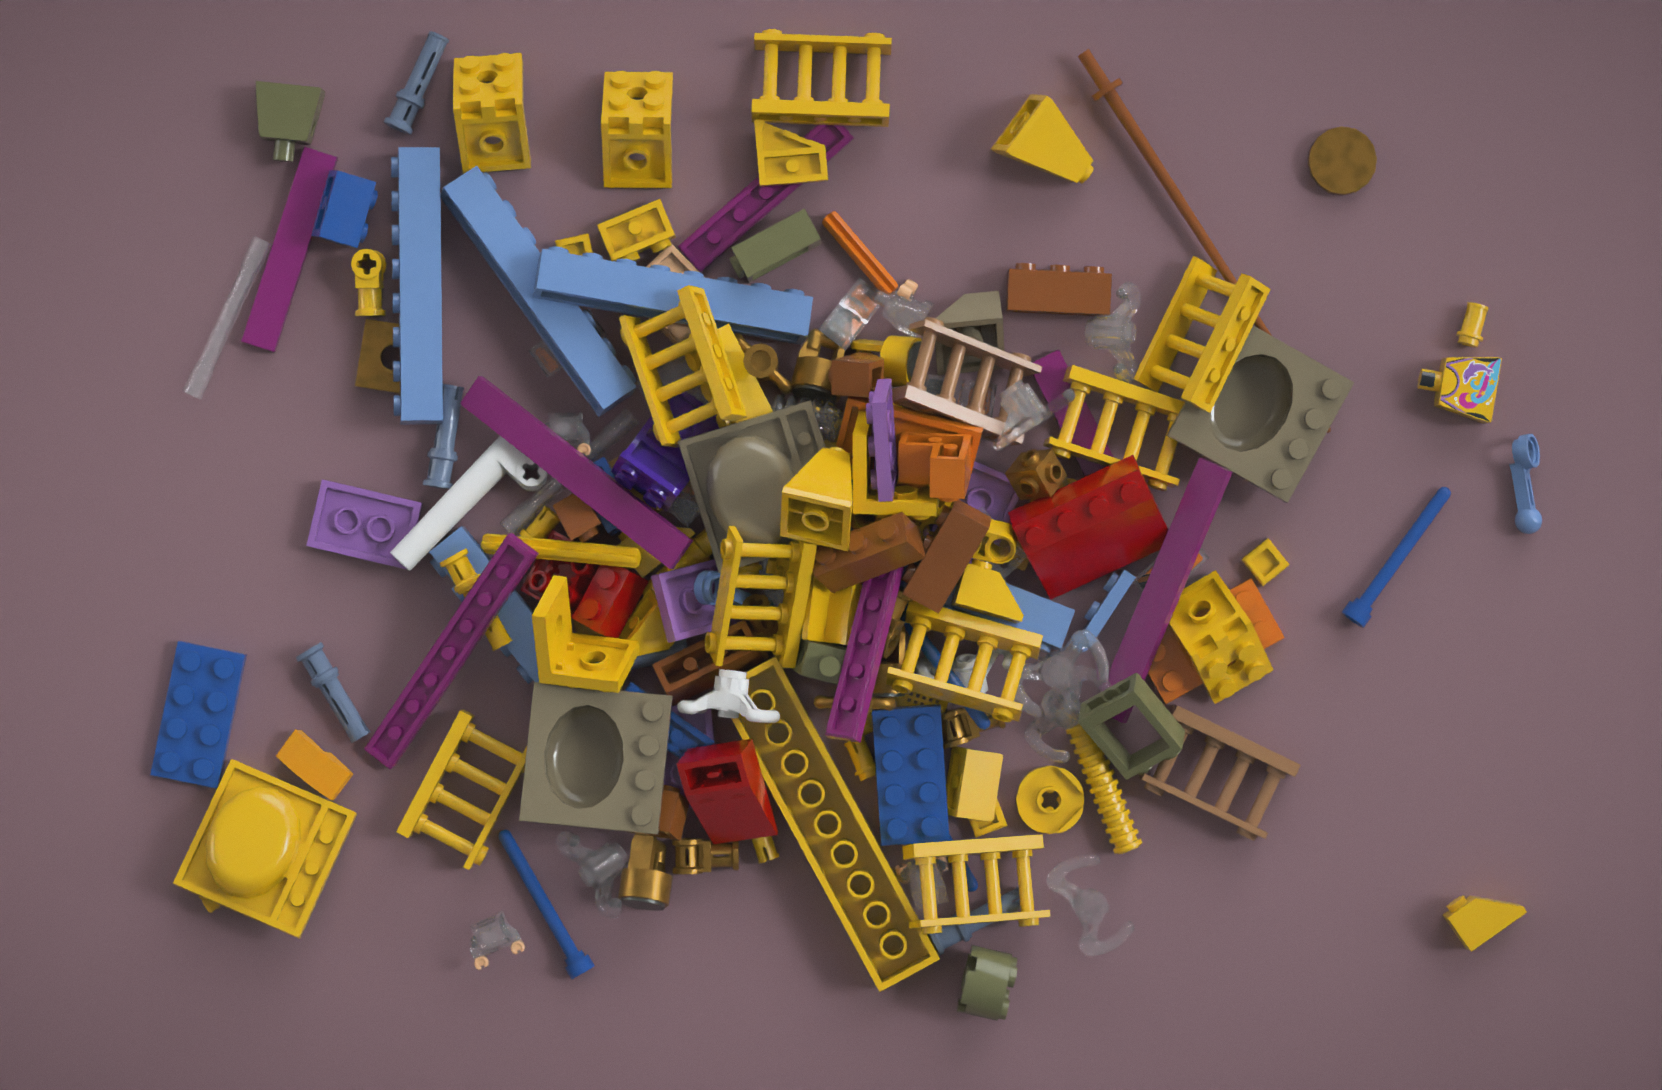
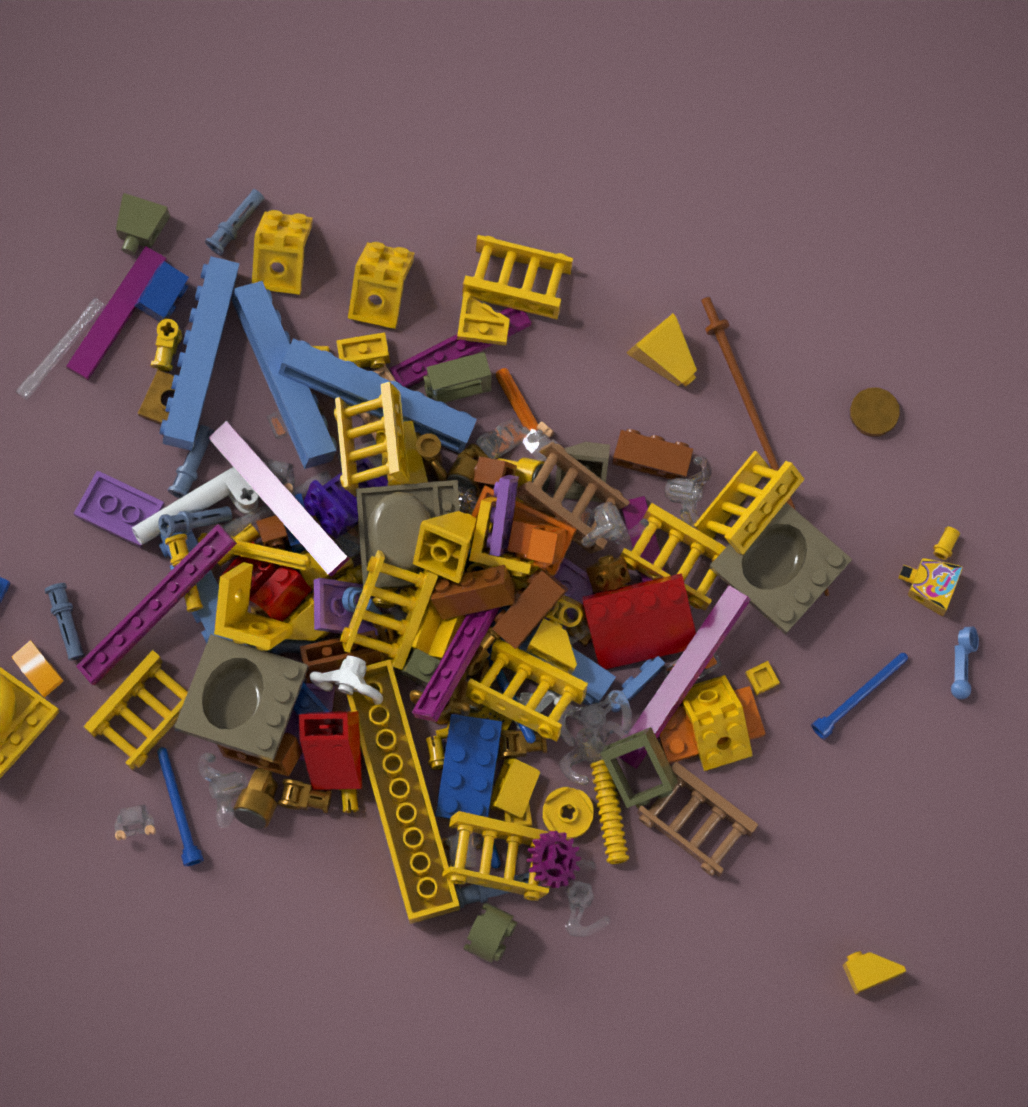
camera: 10 degrees right, 15 degrees down
(461, 529) = (186, 521): none -> sand blue pin
(1047, 871) = (554, 859): none -> magenta gear

